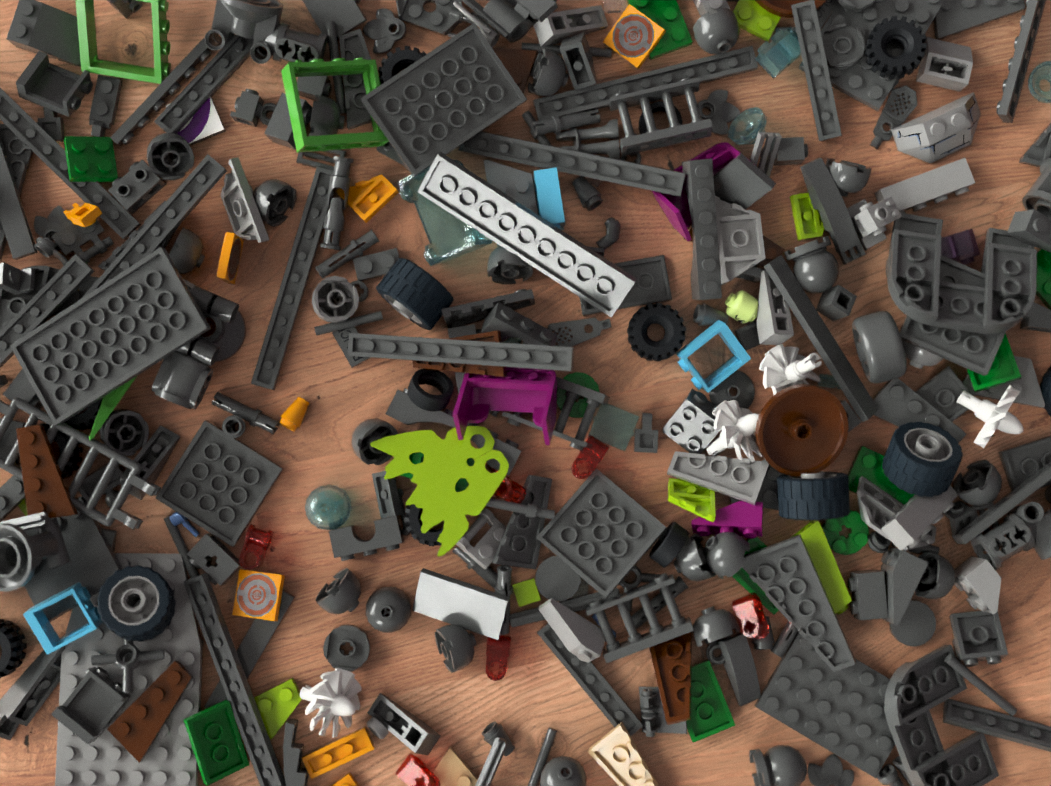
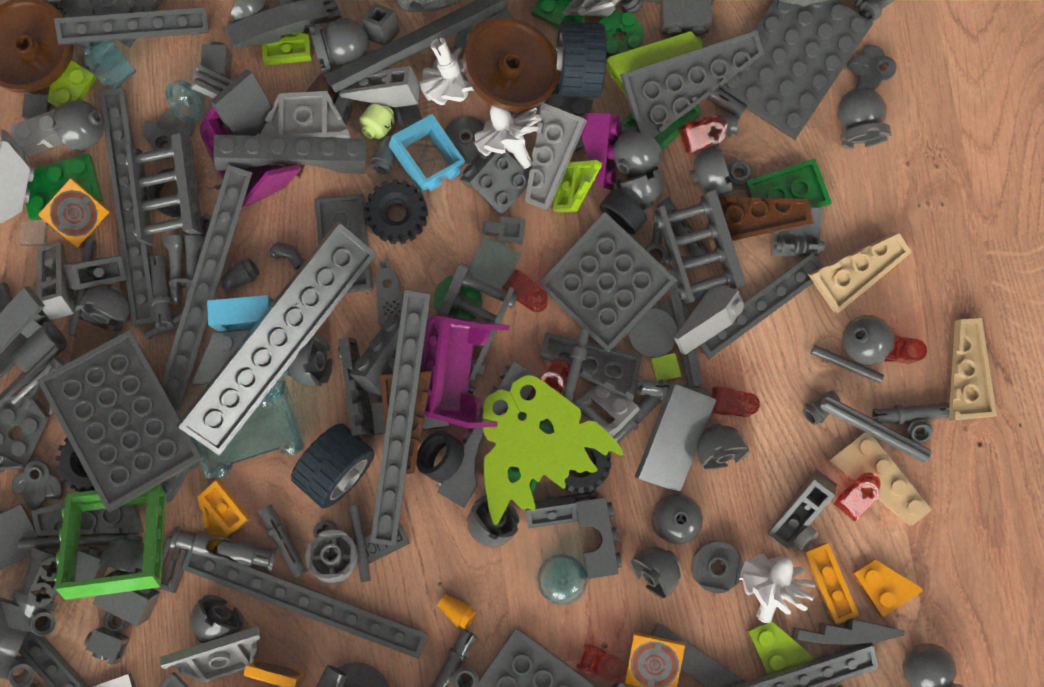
camera: 85 degrees left, 5 degrees down
(375, 264) = (297, 510): dark grey plate -> none
(740, 668) = (756, 149): dark grey slope -> none

